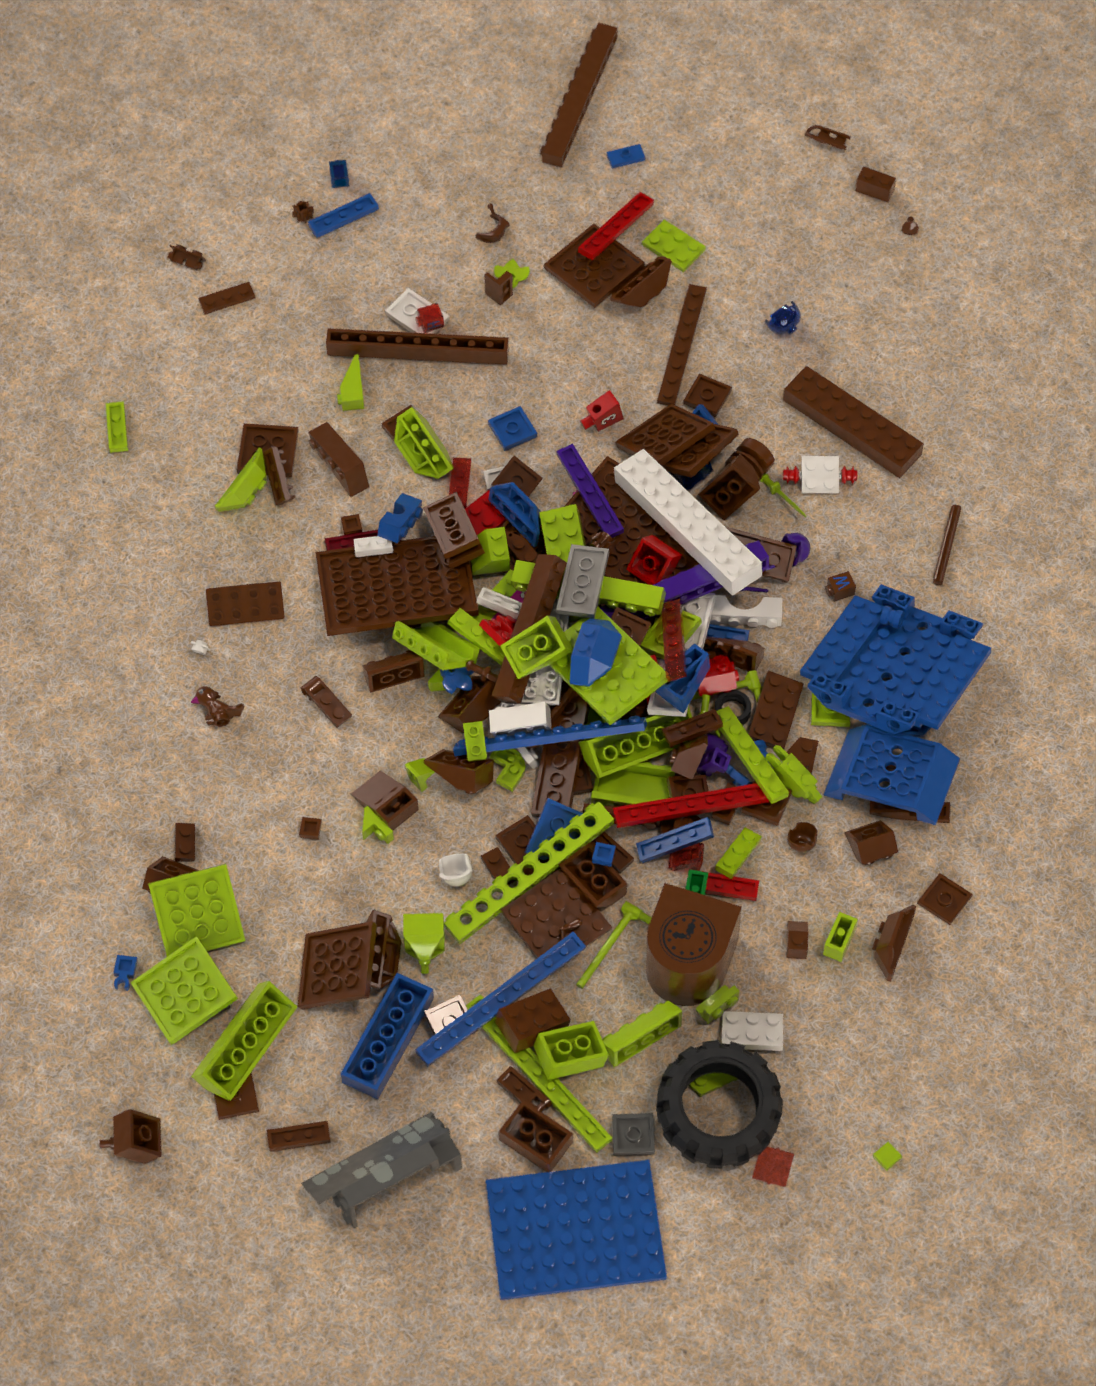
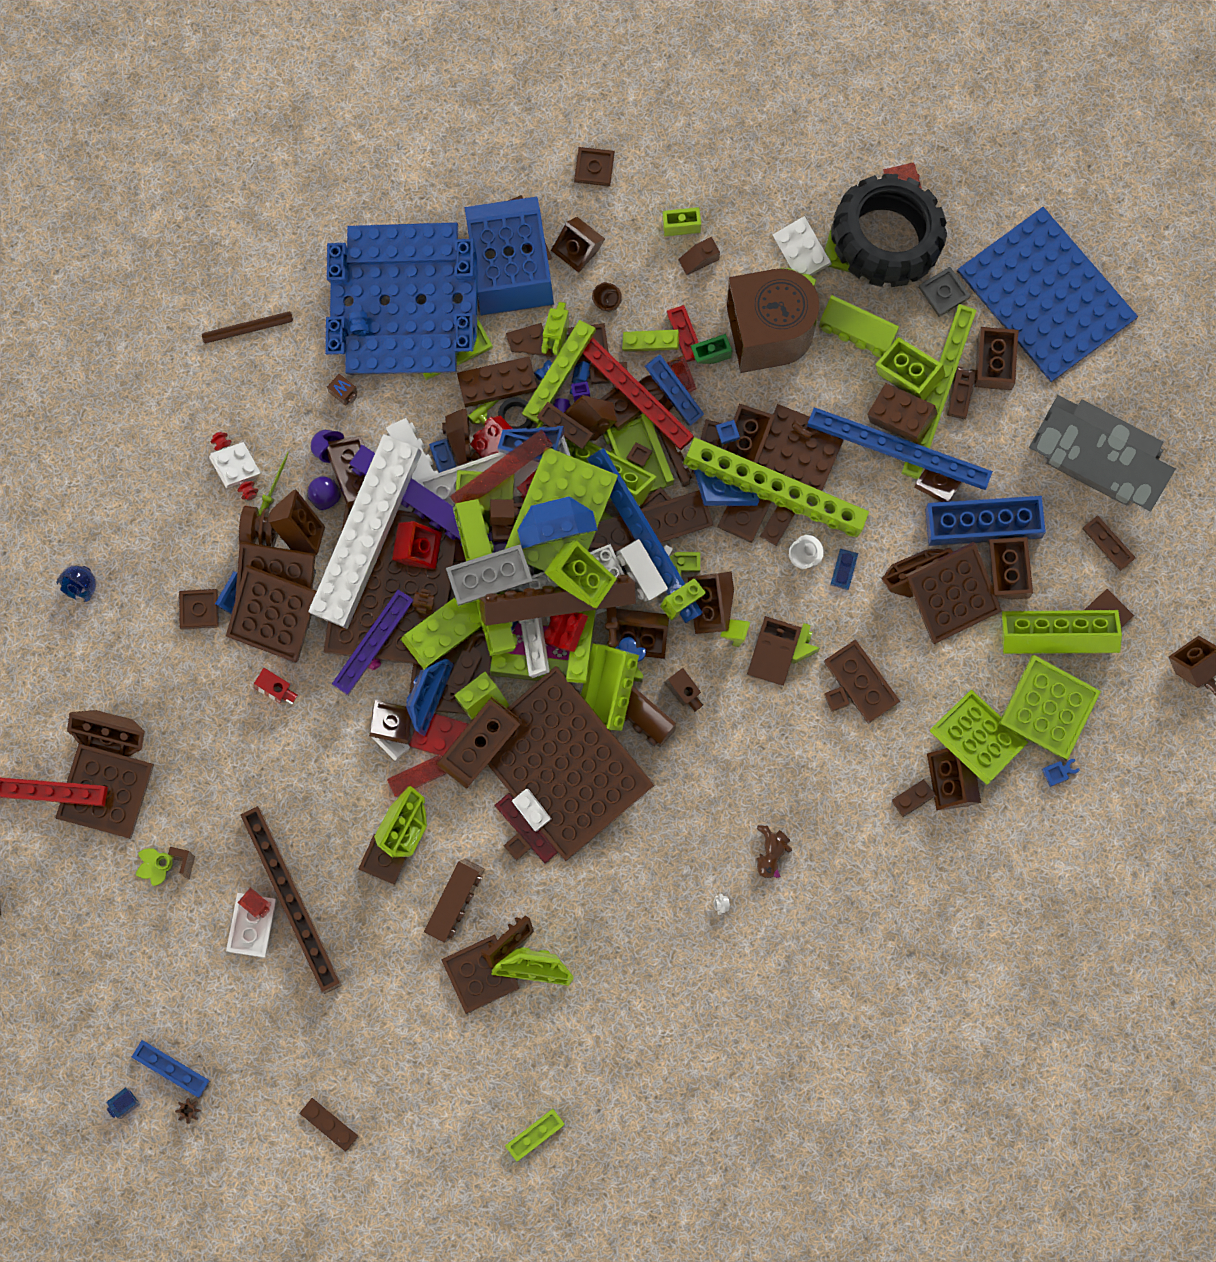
camera: 120 degrees left, 15 degrees up
(193, 258) = (301, 1187): reddish brown hinge -> none
(245, 603) = (652, 892): reddish brown bracket -> none
(312, 856) = (861, 681): none -> reddish brown plate
(326, 701) = (708, 760): reddish brown plate -> none
(328, 1030) = (1011, 568): none -> reddish brown slope
(351, 388) = (371, 934): lime slope -> none
(398, 709) = (678, 683): none -> reddish brown torso
(405, 513) = (475, 801): blue arch -> none
(422, 898) = (844, 569): none -> clear blue plate
(424, 937) = (883, 540): lime piece -> none
(497, 233) = (116, 904): reddish brown helmet -> none
(512, 428) = (331, 762): blue plate -> none
(630, 912) = (754, 397): lime bar -> none
(633, 785) = (639, 455): none -> reddish brown plate
(635, 622) = (502, 512): none -> reddish brown brick
(674, 244) = (40, 732): lime plate -> none
(682, 345) = (152, 663): reddish brown plate -> none
(755, 524) = (323, 492): none -> dark purple helmet
(853, 421) = (161, 466): reddish brown brick -> none
(887, 1156) = (843, 101): lime tile -> none
(892, 940) = (658, 183): reddish brown wedge -> none

